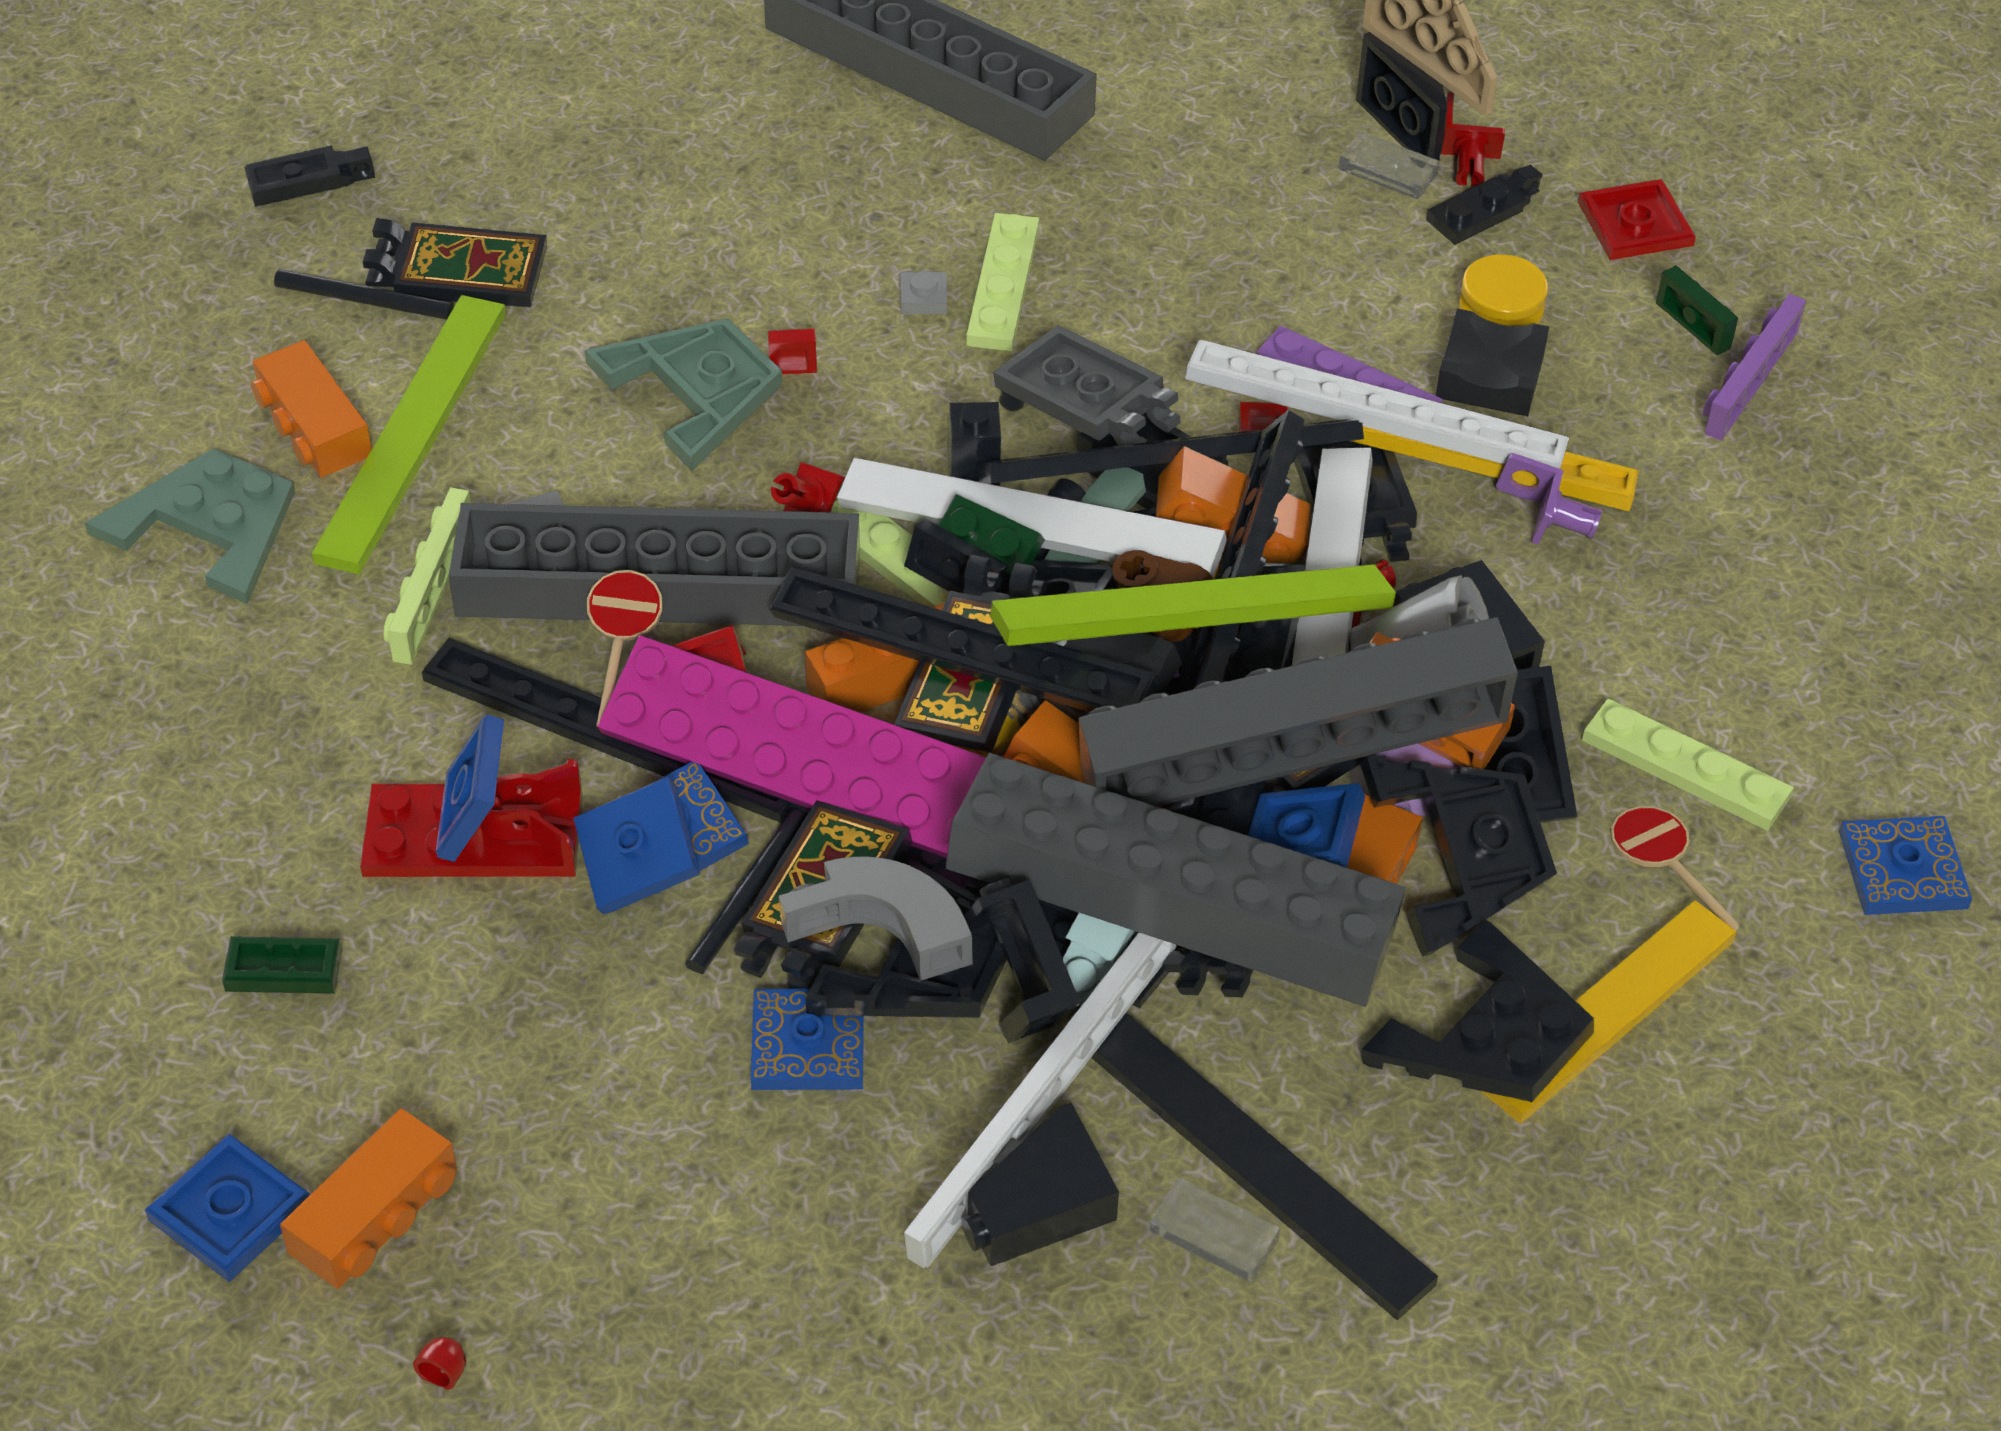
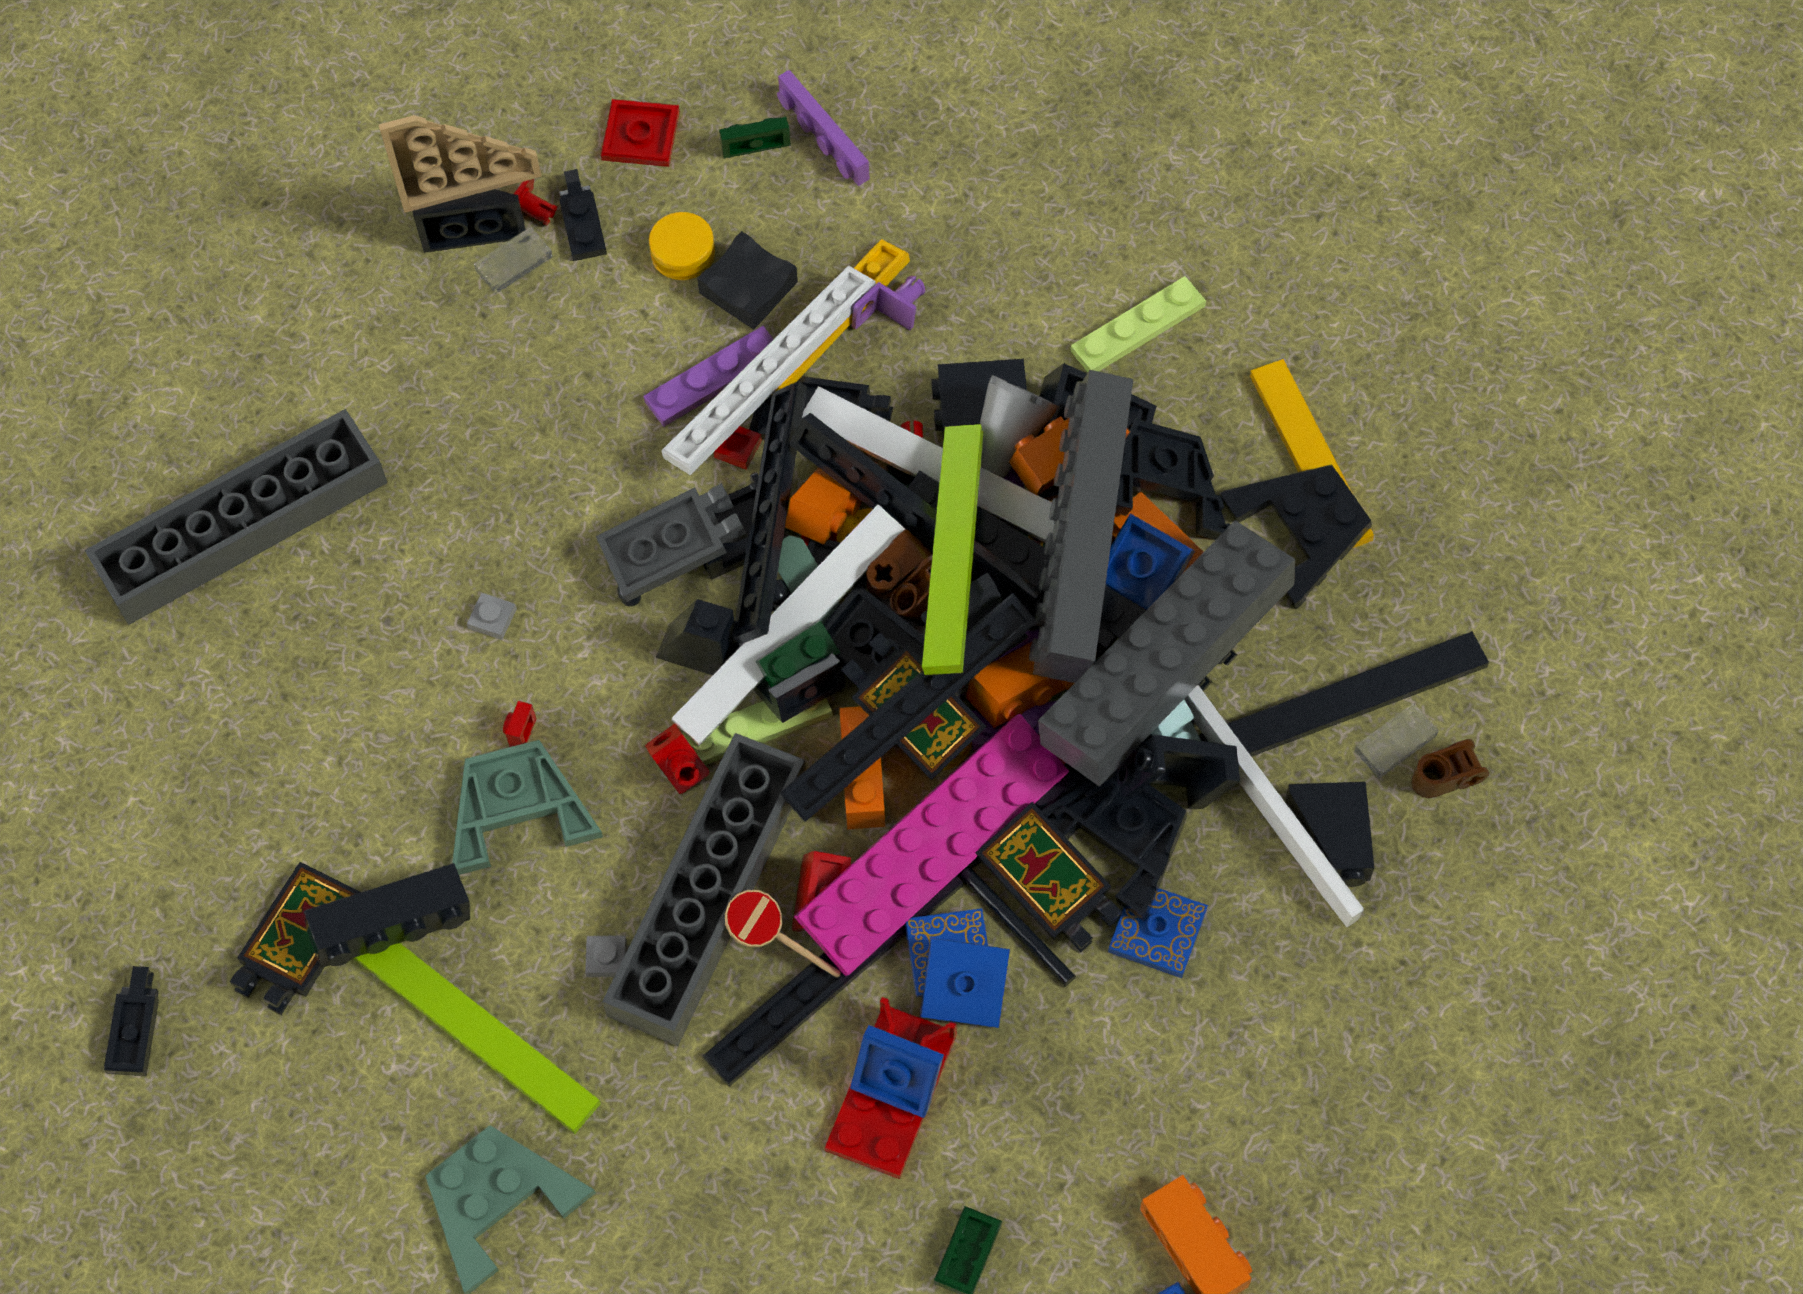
camera: 65 degrees left, 15 degrees up
(310, 409) = (419, 1090): orange brick -> none
(363, 294) = (292, 1022): black bar -> none
(427, 583) = (651, 1059): yellowish green plate -> none
(439, 1355) = (1335, 1233): red hinge -> none
(503, 311) = (387, 916): none -> black brick
(888, 897) = (1113, 818): light grey arch -> none
(1003, 282) = (505, 558): yellowish green plate -> none
(1206, 1311) = (1454, 766): none -> reddish brown piece
(1660, 839) = (1189, 372): piece -> none
(1905, 865) = (1264, 245): blue plate -> none

